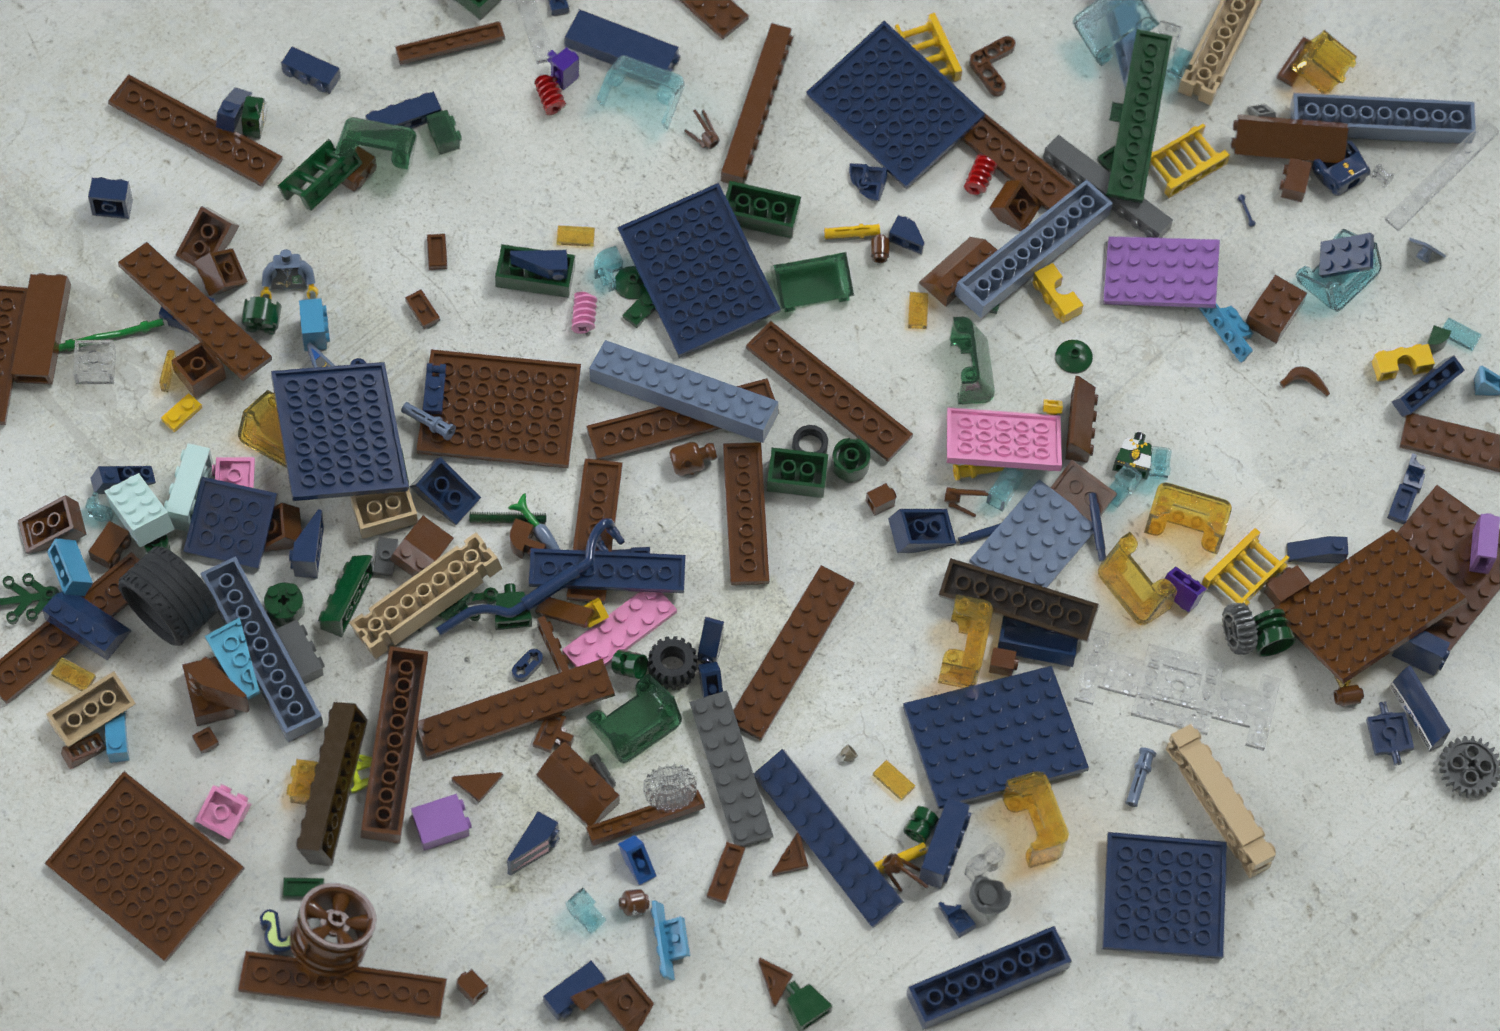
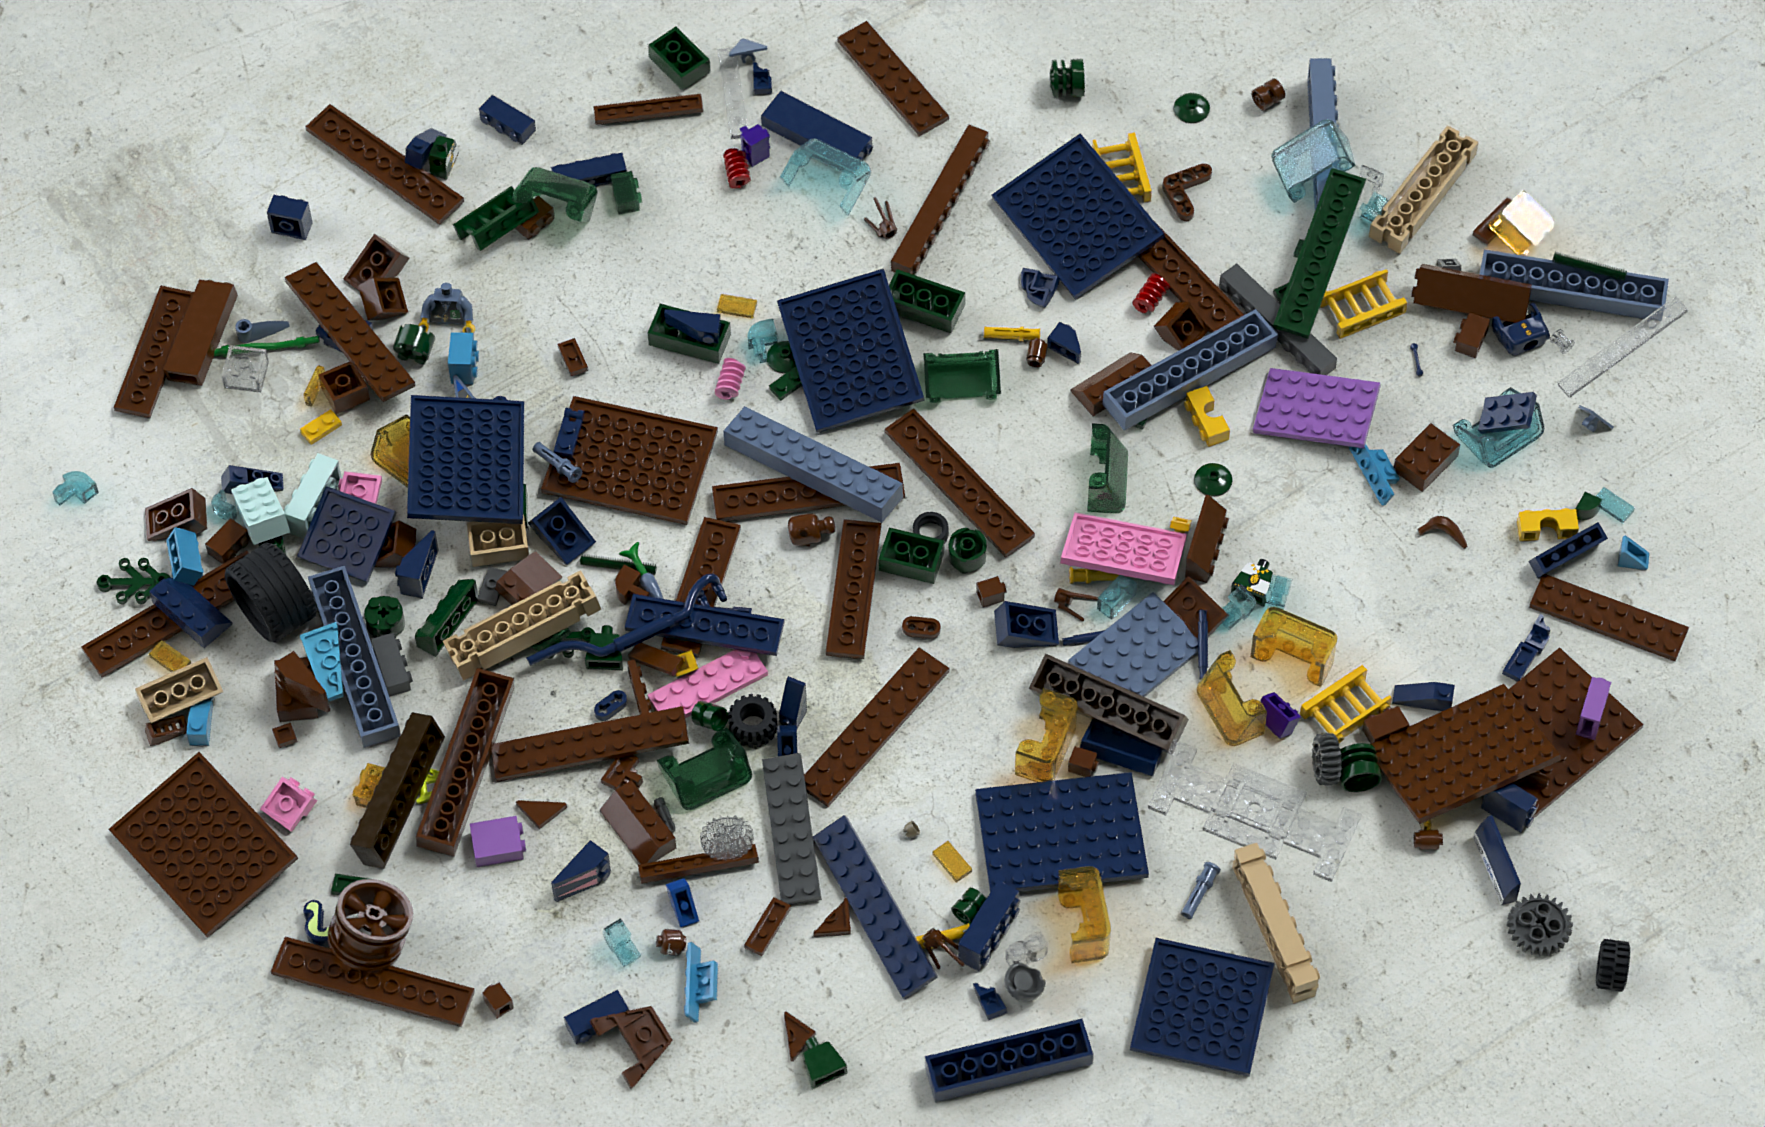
camera: 15 degrees right, 5 degrees down
(99, 319) = (251, 332): none -> sand blue piece
(437, 251) = (598, 305): reddish brown tile -> none
(819, 544) = (921, 627): none -> reddish brown plate
(918, 310) = (1064, 416): clear yellow plate -> none
(1380, 94) = (1589, 266): none -> dark green axle
(1390, 733) = (1463, 881): dark blue plate -> none

